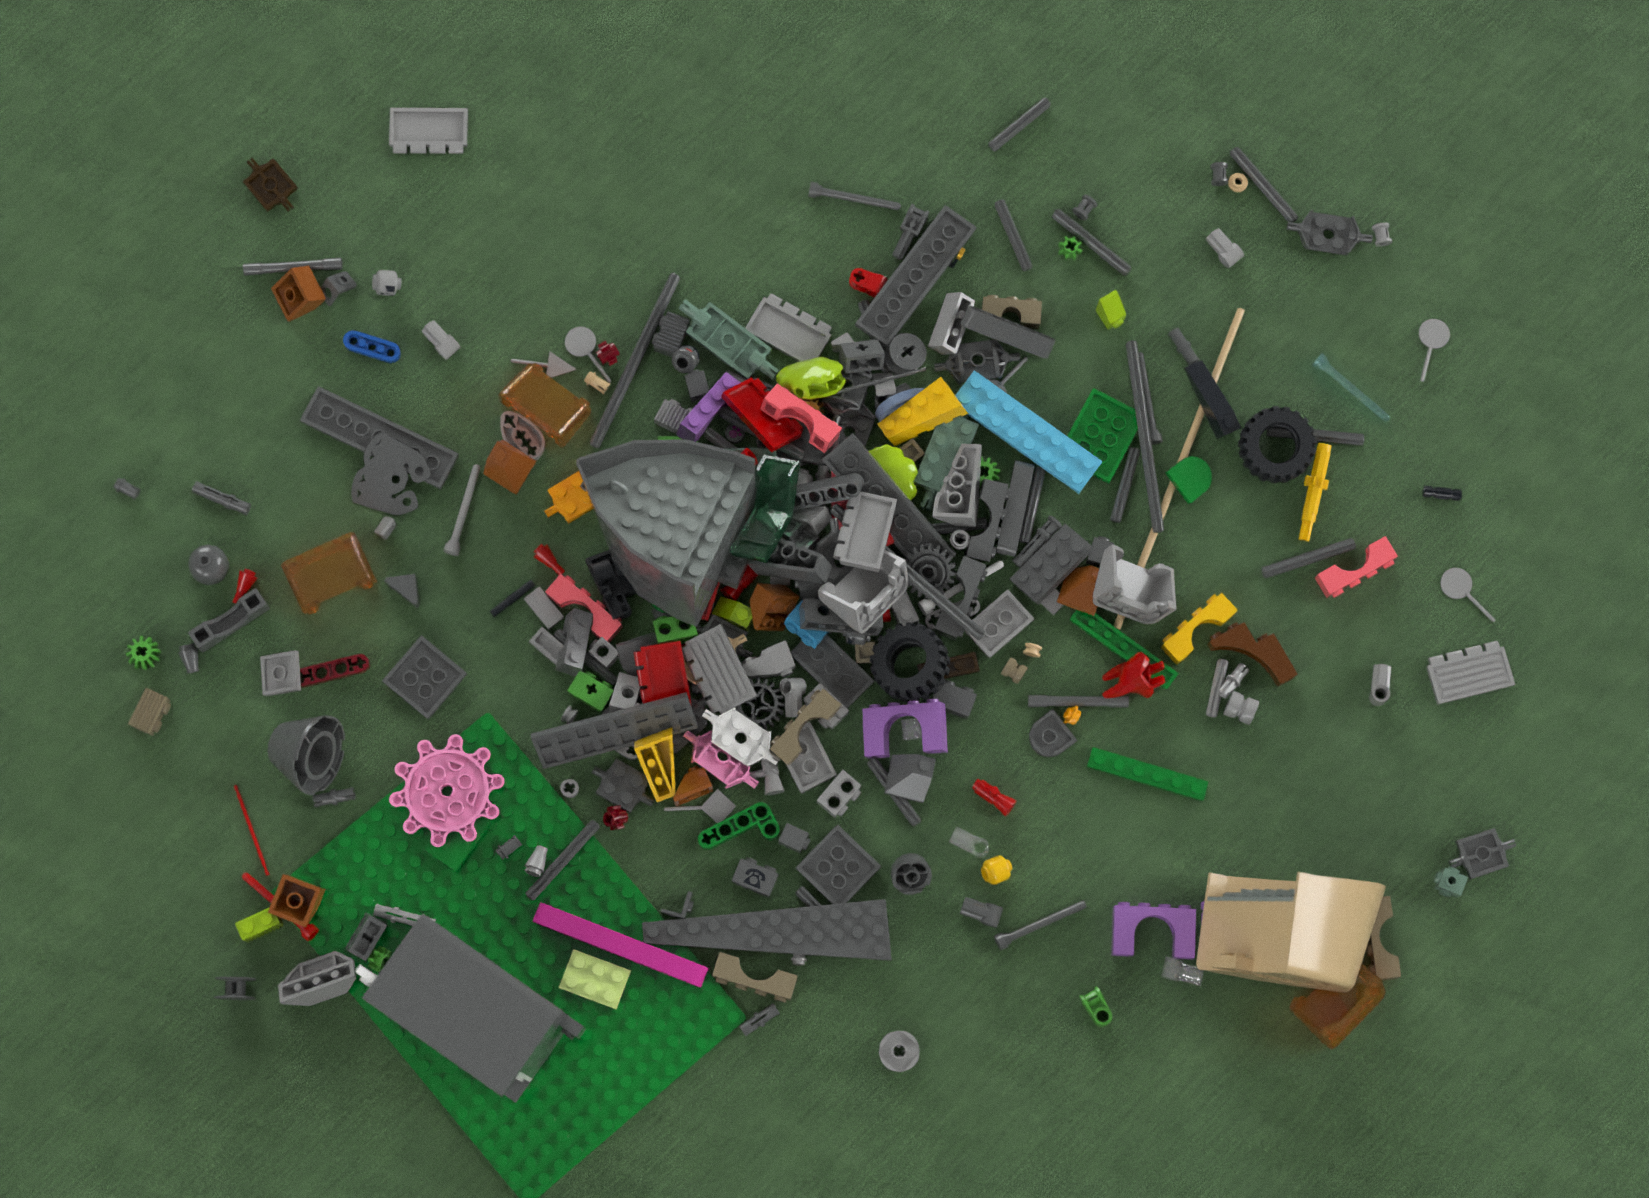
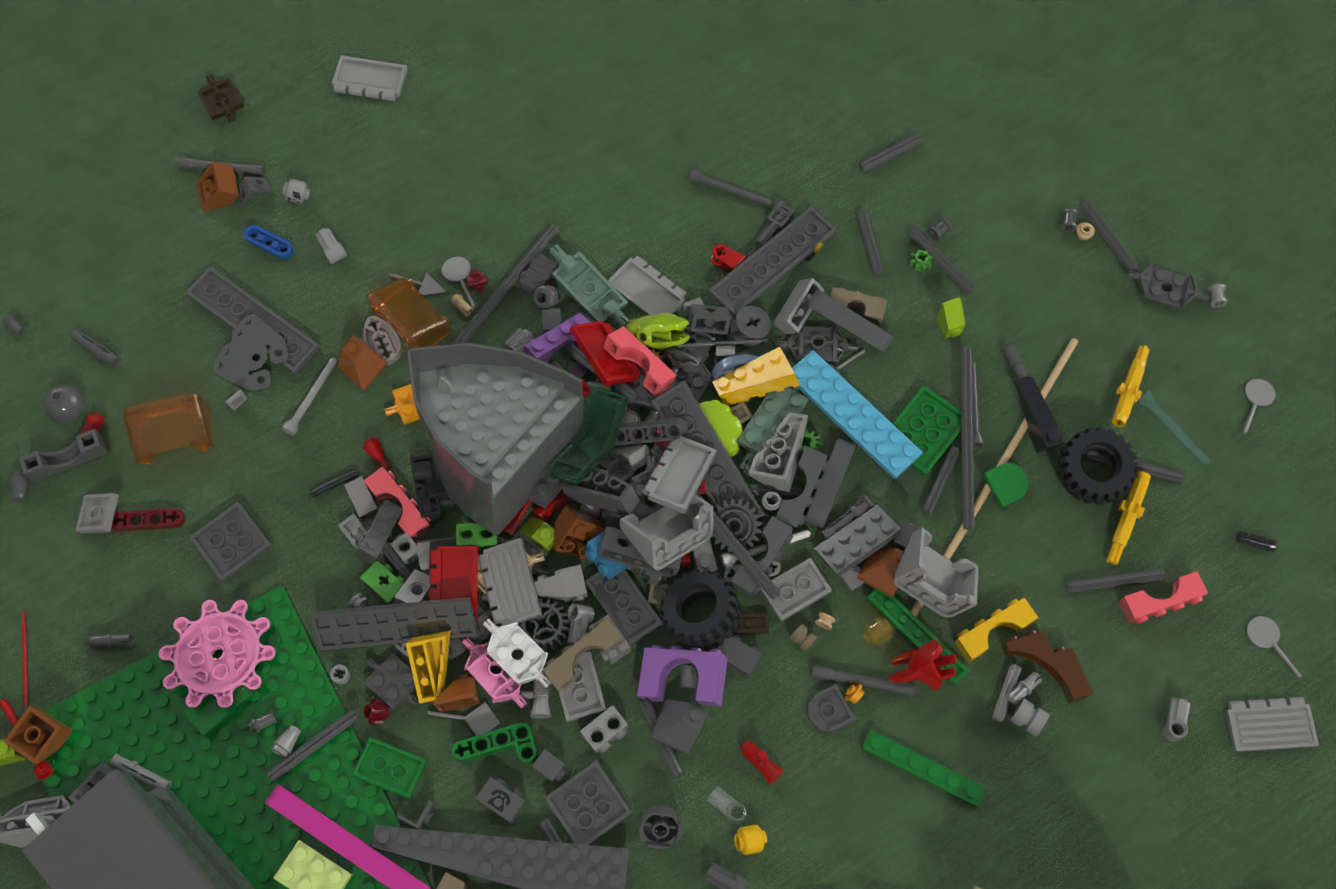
camera: 15 degrees right, 10 degrees down
(308, 751) = (95, 591): dark grey cone -> none
(406, 587) = (238, 454): dark grey slope -> none
(641, 868) = (389, 768): none -> green tile
(1032, 505) = (847, 483): dark grey axle -> none
(1085, 651) = (877, 631): none -> clear yellow head
(1227, 251) = (1068, 287): light grey piece -> none
(1301, 357) = (1129, 390): none -> yellow piece

